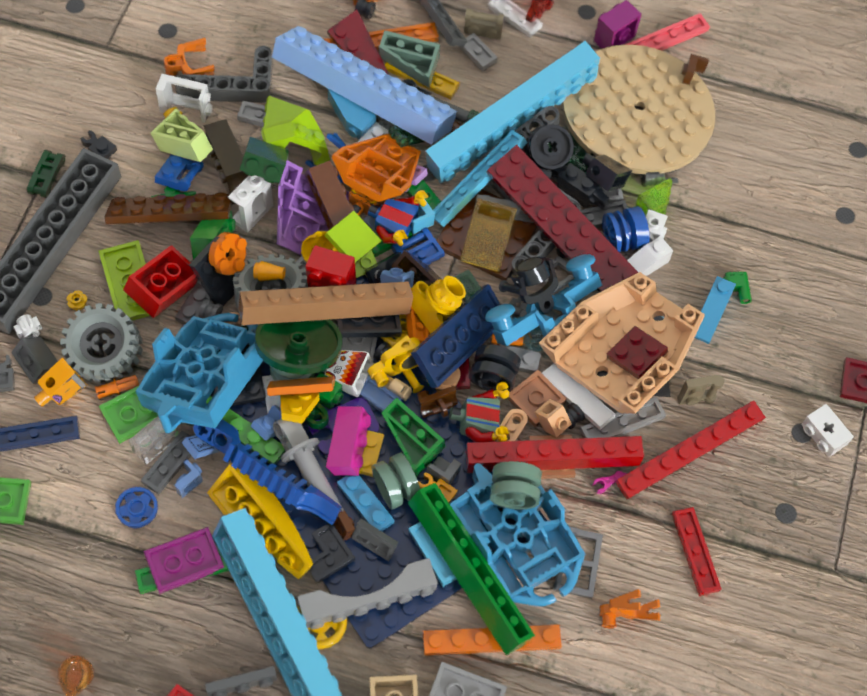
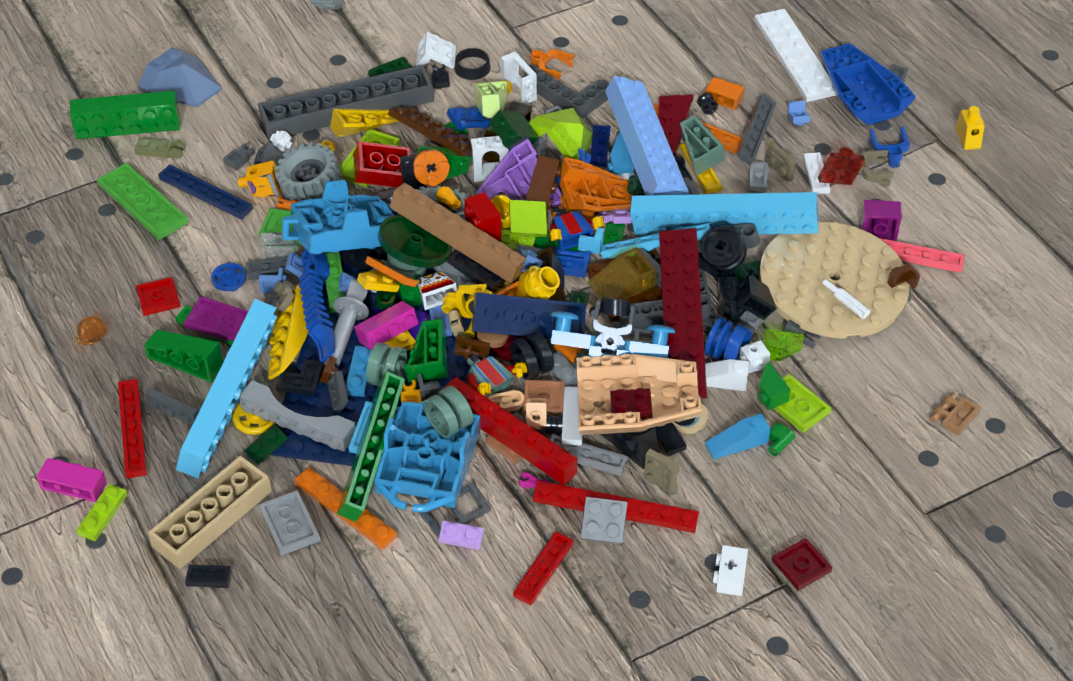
camera: 50 degrees right, 15 degrees down
(65, 121) = (437, 49): none -> white bracket
(81, 249) = (358, 120): none -> yellow wedge
(91, 582) = (158, 296): none -> red tile
(115, 126) = (472, 74): none -> black tyre
(192, 620) = (186, 353): none -> green wedge
(208, 491) = (281, 296): none -> dark tan plate
(323, 116) = (600, 145): none -> clear blue plate
(365, 643) = (266, 444): none -> dark green plate
(609, 580) = (461, 535): none -> lavender plate
(622, 608) = (440, 552): orange piece -> none
(677, 121) = (848, 300): none -> white axle
(698, 245) = (772, 388): none -> green slope
(700, 470) = (604, 520): none -> light grey plate
(719, 244) = (803, 407): none -> lime plate
(835, 161) = (959, 417): none -> medium nougat plate

